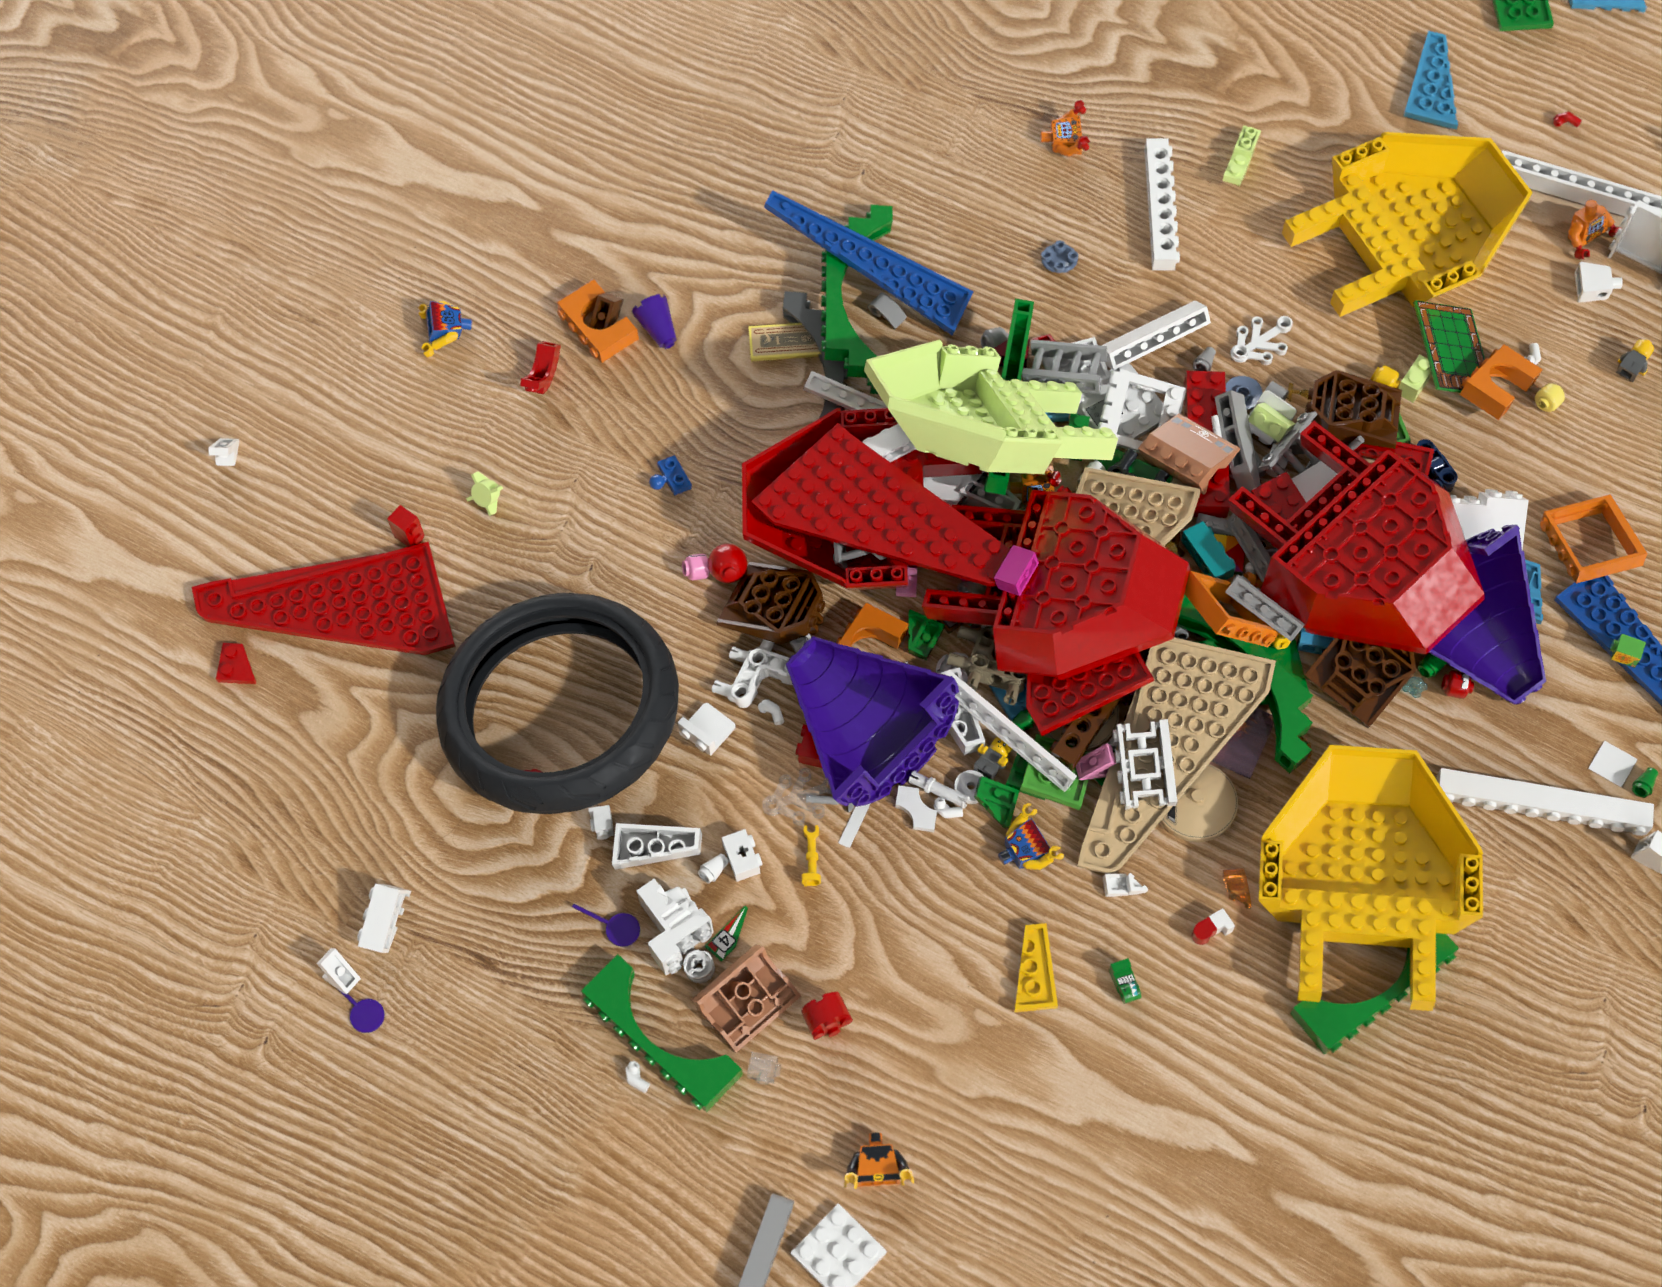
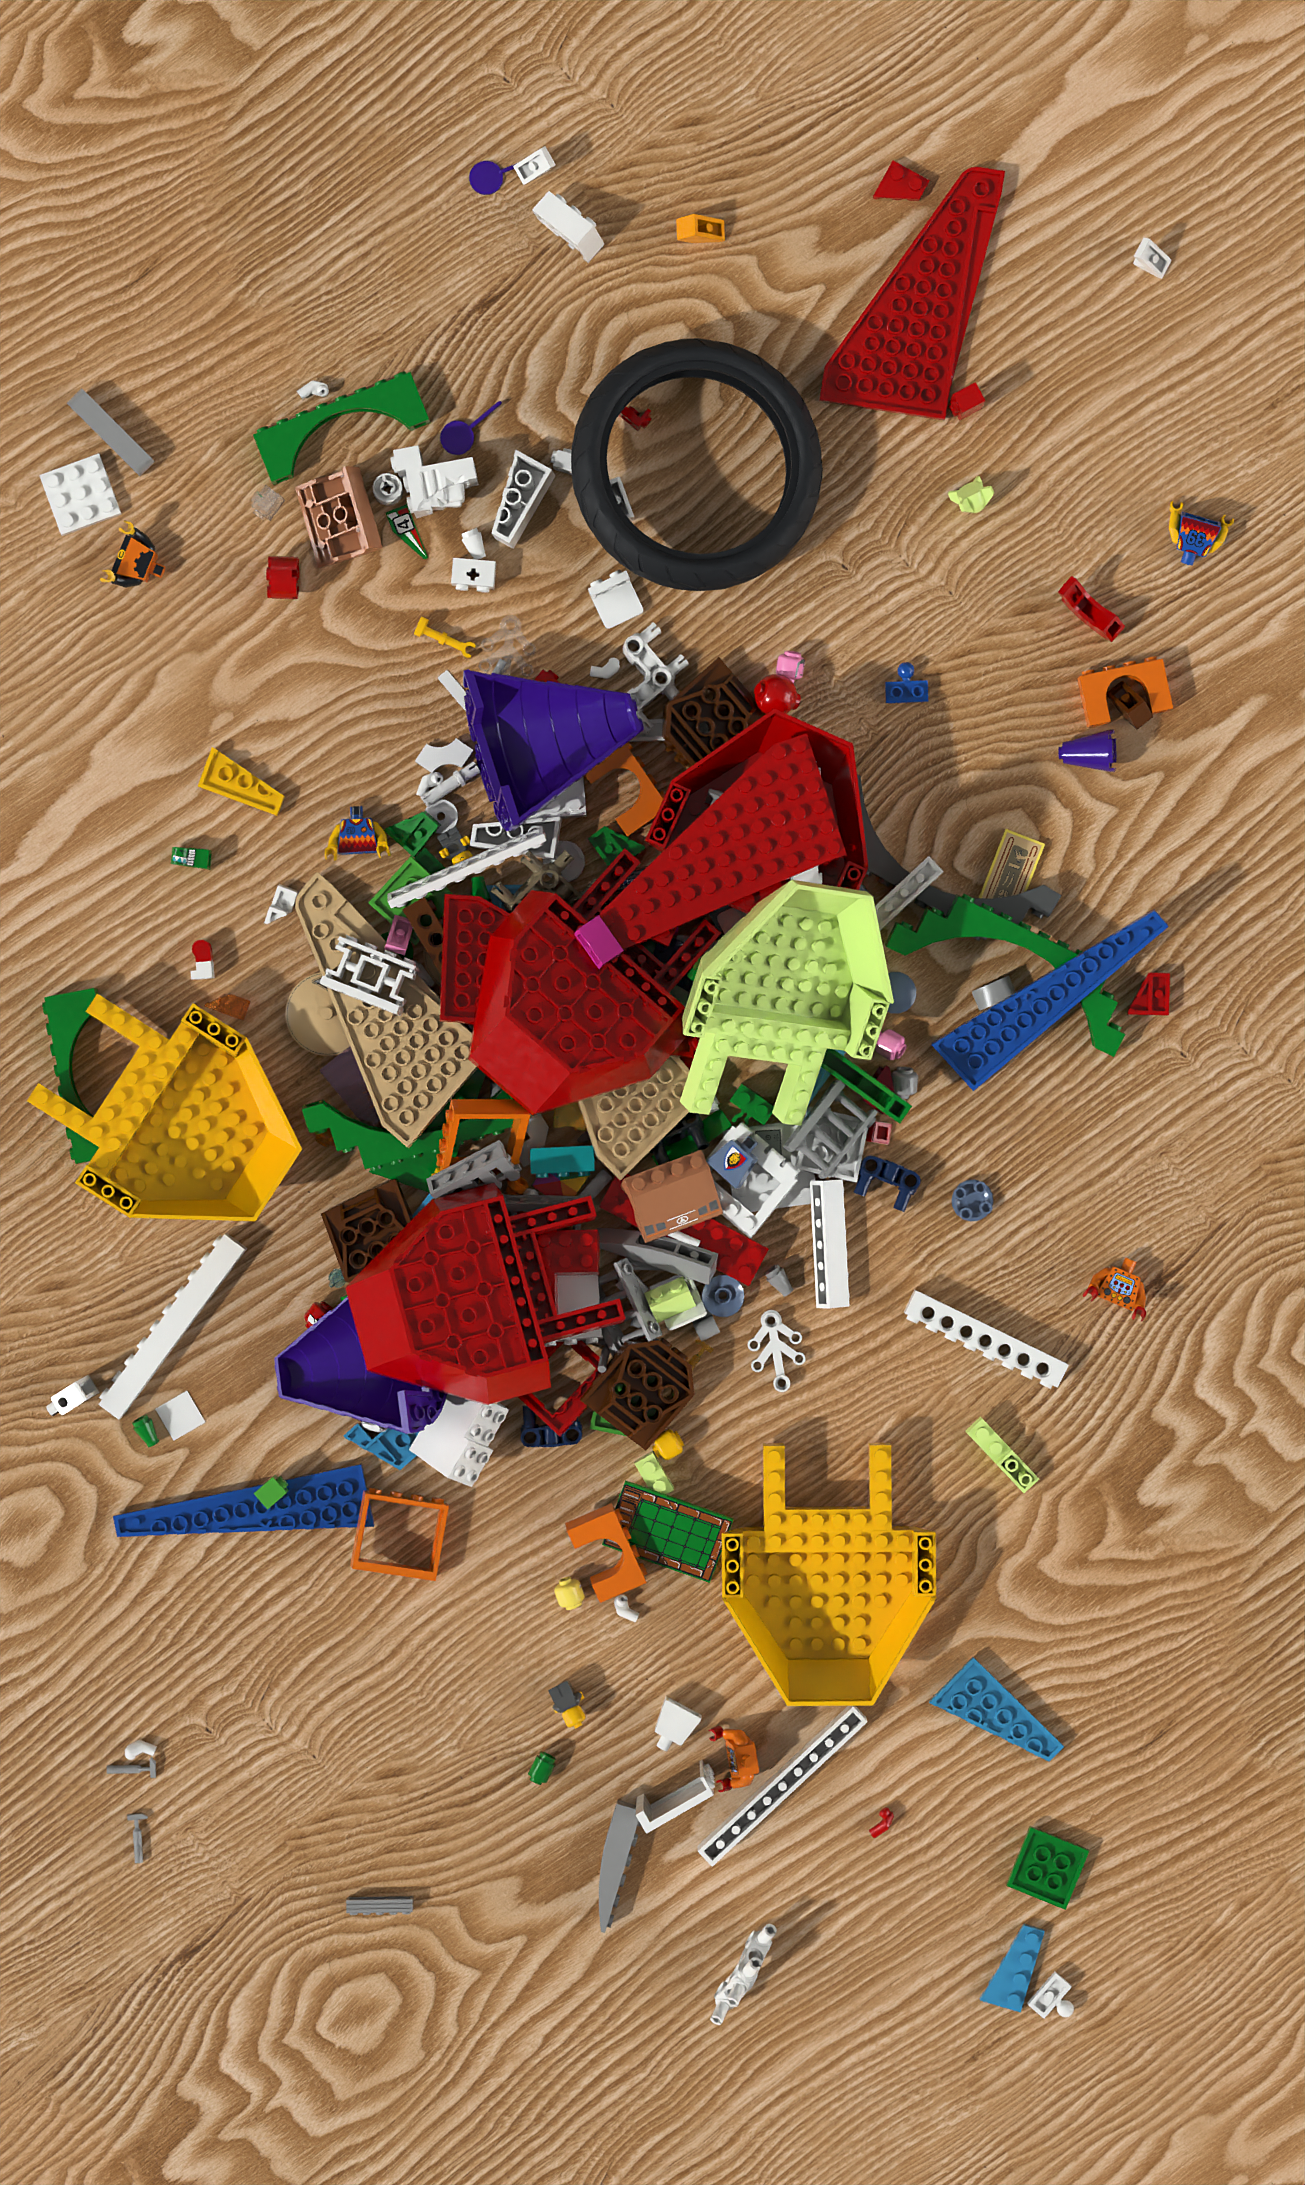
camera: 110 degrees right, 25 degrees up
(342, 806) = (700, 229): none -> light orange slope
(831, 205) = (1152, 996): none -> red wing
(1073, 318) = (889, 1173): none -> dark blue piece
(1131, 421) = (735, 1160): none -> sand blue torso

